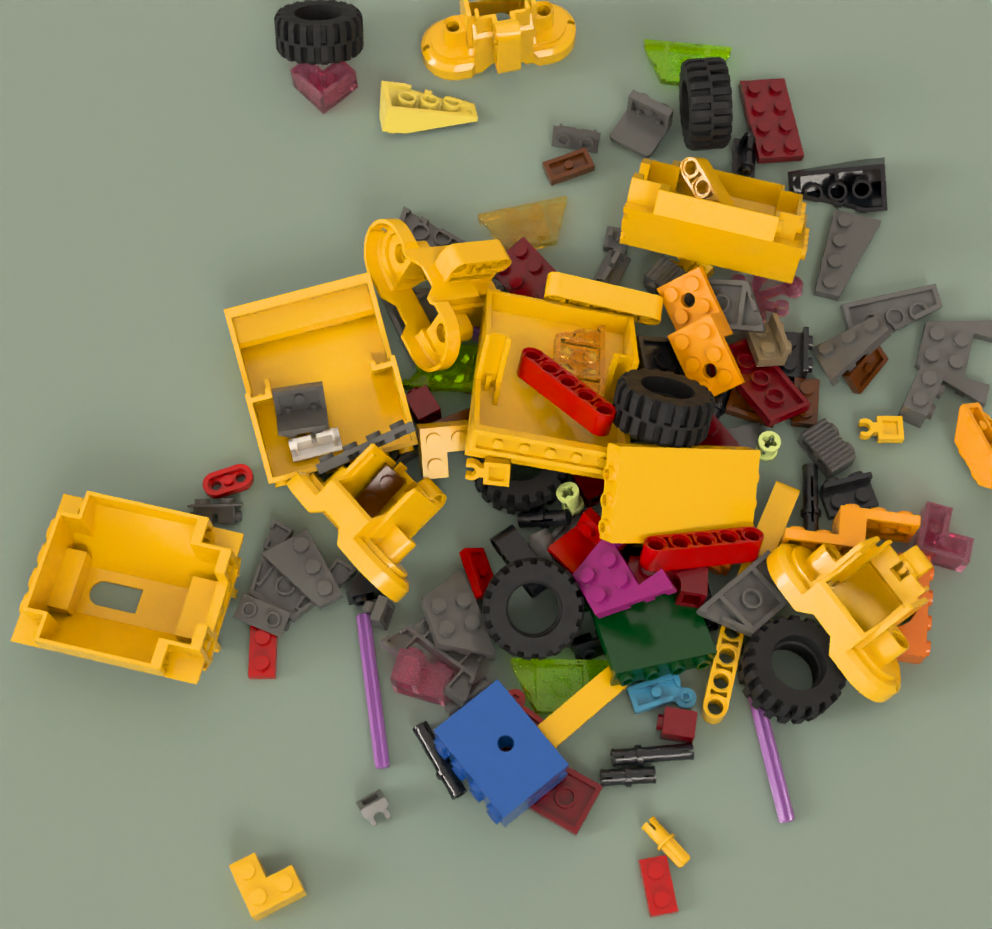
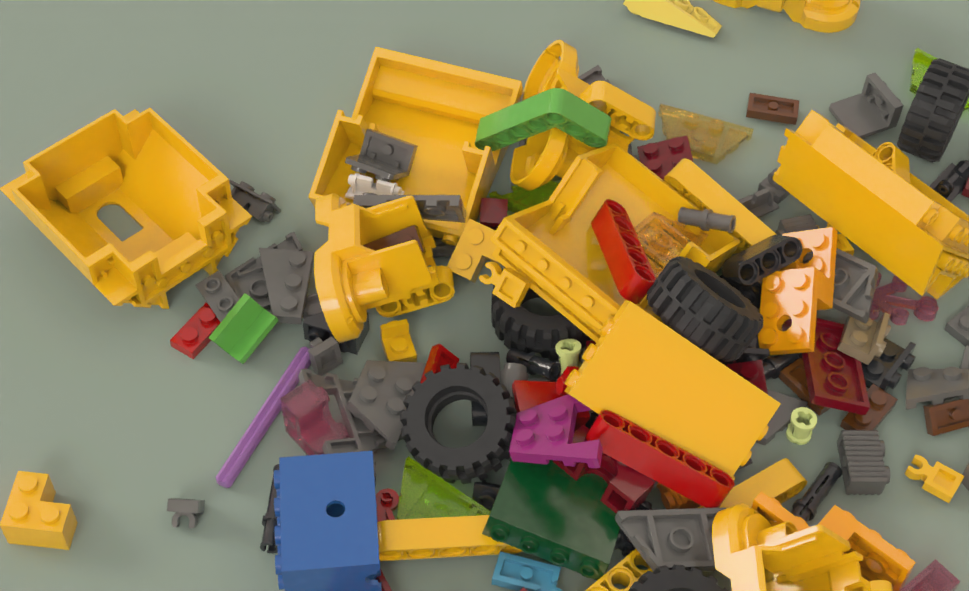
camera: 30 degrees right, 15 degrees down
(228, 480) = (284, 185): red plate -> none
(305, 631) = (243, 328): none -> bright green panel
(421, 309) = (541, 113): none -> bright green beam
(427, 565) = (397, 341): none -> yellow bracket
(575, 138) = (792, 88): dark grey hinge -> none
(600, 316) = (707, 219): none -> dark grey pin
(662, 326) = (762, 259): none -> black beam
(849, 490) = (867, 509): black bracket -> none

